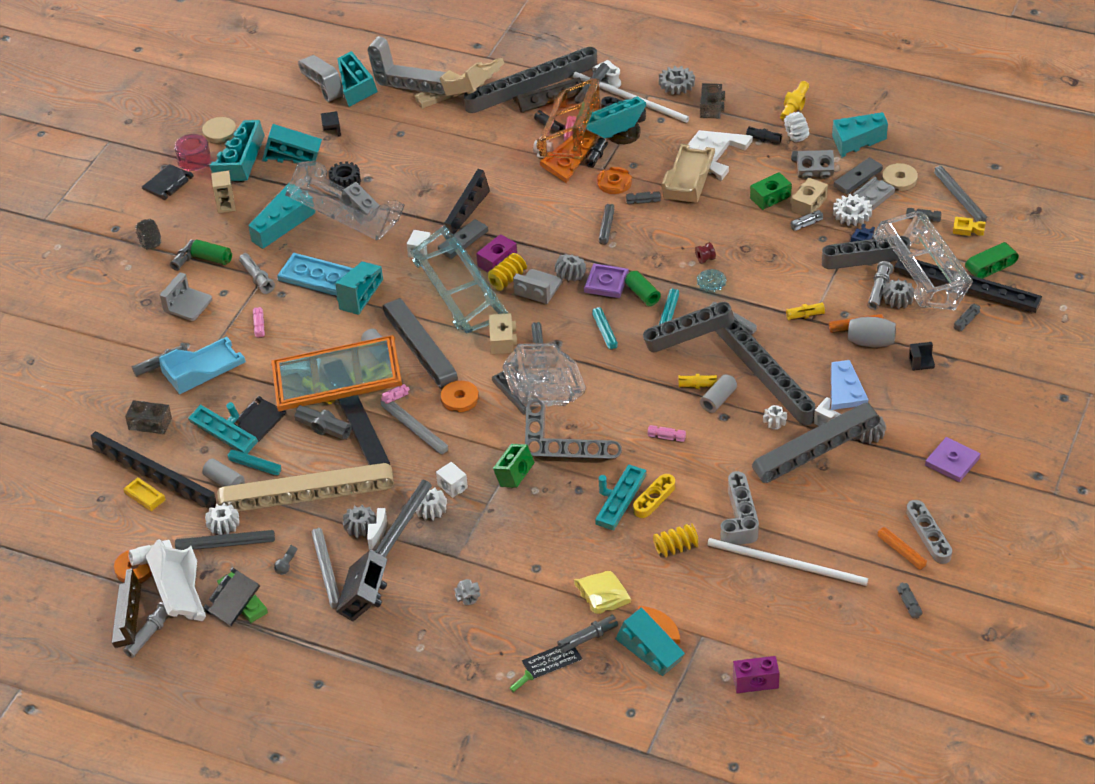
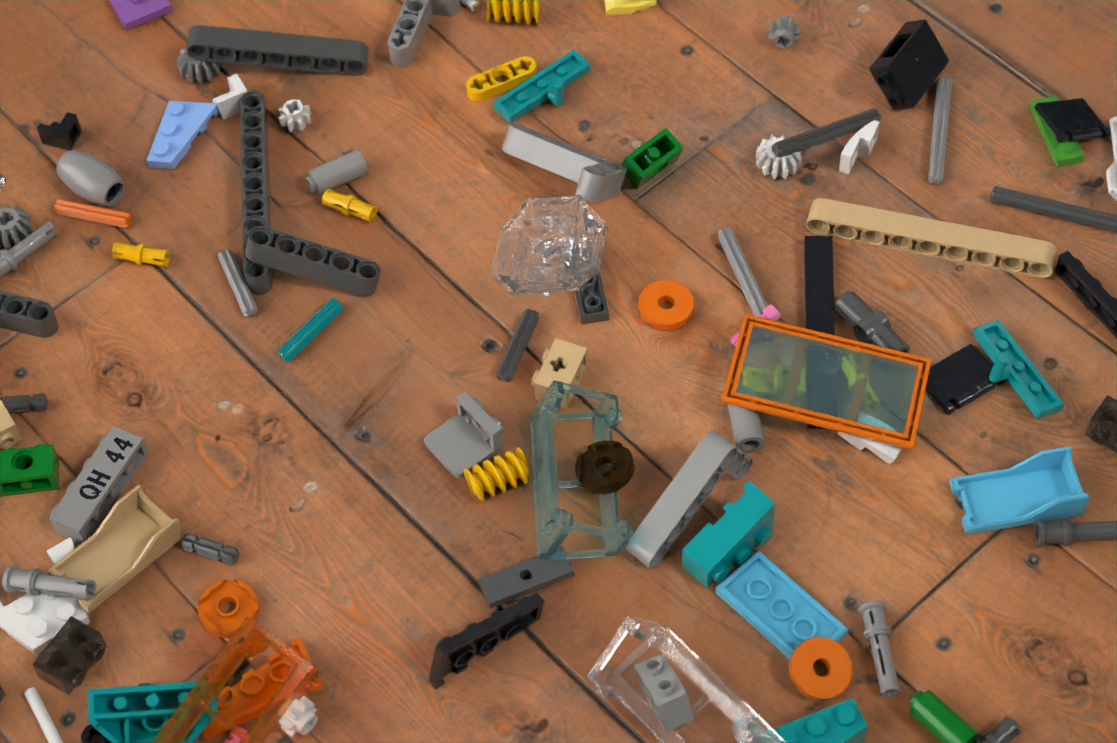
camera: 155 degrees left, 10 degrees up
(182, 300) = (1012, 633): light grey bracket -> none
(221, 474) = (1036, 294): light grey brick -> none
(222, 519) = (1057, 229): white gear -> none
(254, 462) = (985, 306): teal axle -> none
(258, 322) = (906, 549): bright pink axle -> none
(282, 565) = (994, 147): dark grey arm -> none
(284, 252) = (837, 663): none -> orange tile
(357, 520) = (876, 165): light grey gear -> none
(380, 292) = (685, 495): none -> light grey beam
(415, 239) = (602, 589): white panel -> none
(420, 342) = (679, 391): dark grey beam -> none
(442, 299) = (607, 480): none -> dark brown tile
(451, 479) = (736, 178): white brick -> none
(495, 252) = (485, 532): magenta brick -> none
(570, 267) = (402, 442): light grey gear -> none
(605, 328) = (414, 335): teal axle -> none
(606, 224) = (296, 520): dark grey axle -> none
(606, 280) = (363, 410): medium lavender plate -> none
(642, 288) = (323, 372): green brick -> none
(666, 433) = (435, 151): bright pink axle -> none
(676, 131) = (64, 652): none -> clear smoke brick
(705, 253) = (198, 396): dark red wheel -> none
(707, 275) = (222, 343): clear light blue gear -> none
(717, 142) = (37, 582): none -> light grey pin
(725, 198) = (98, 485): none -> light grey brick

